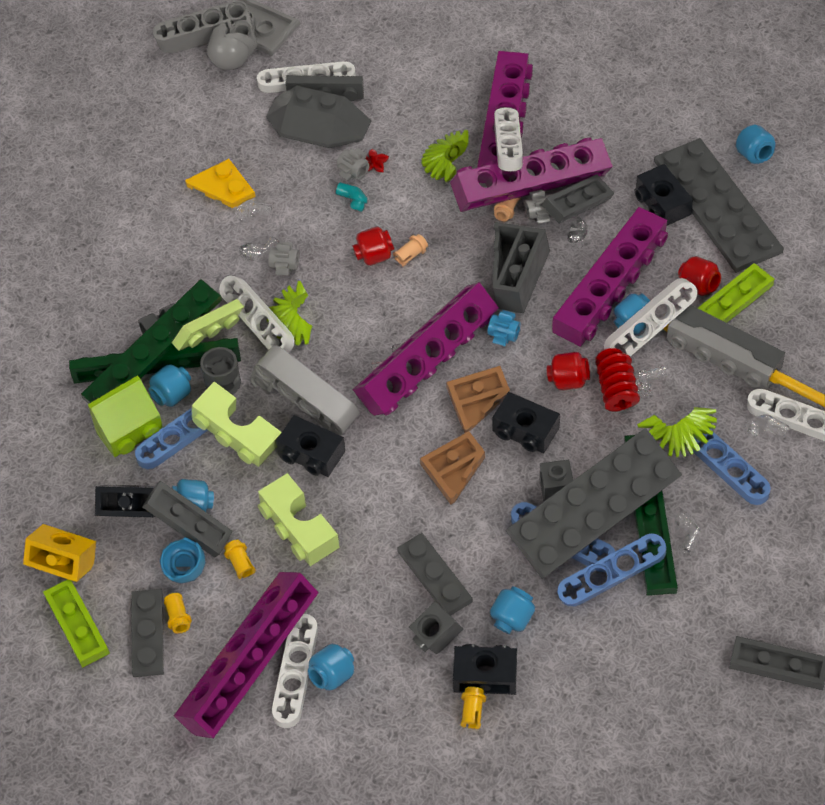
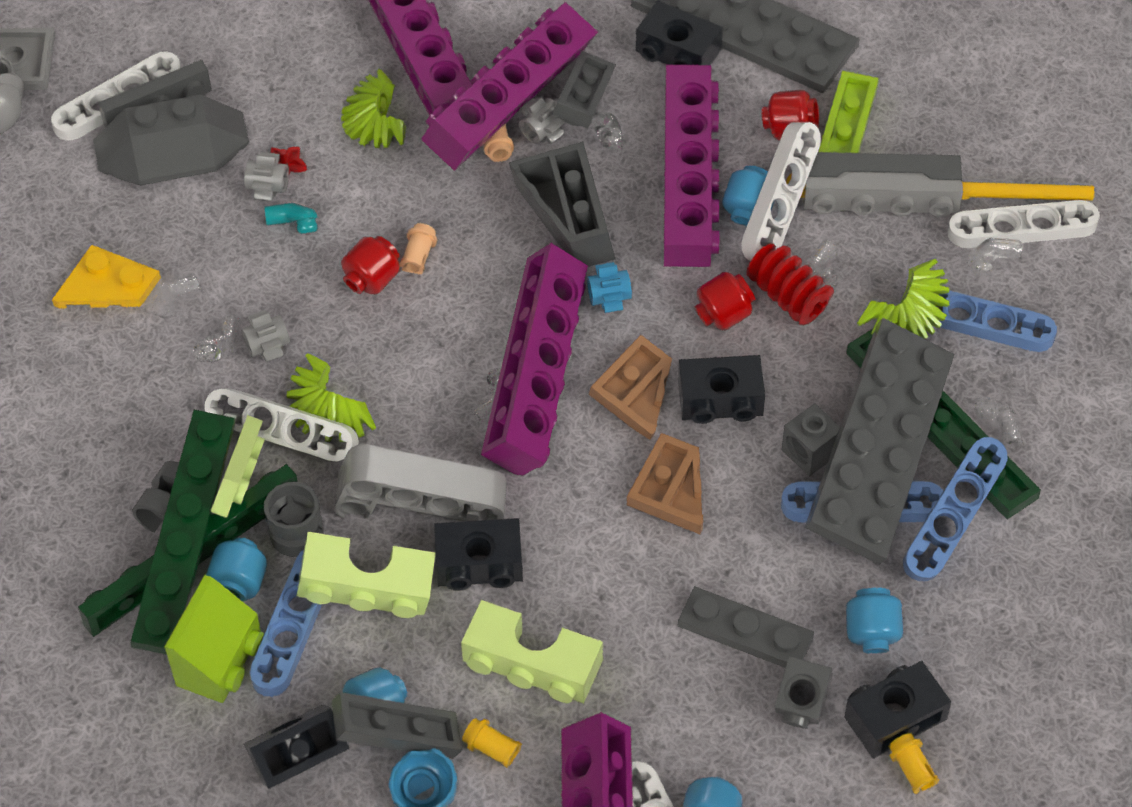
camera: 35 degrees left, 0 degrees up
(508, 139) = (460, 52): white beam -> none

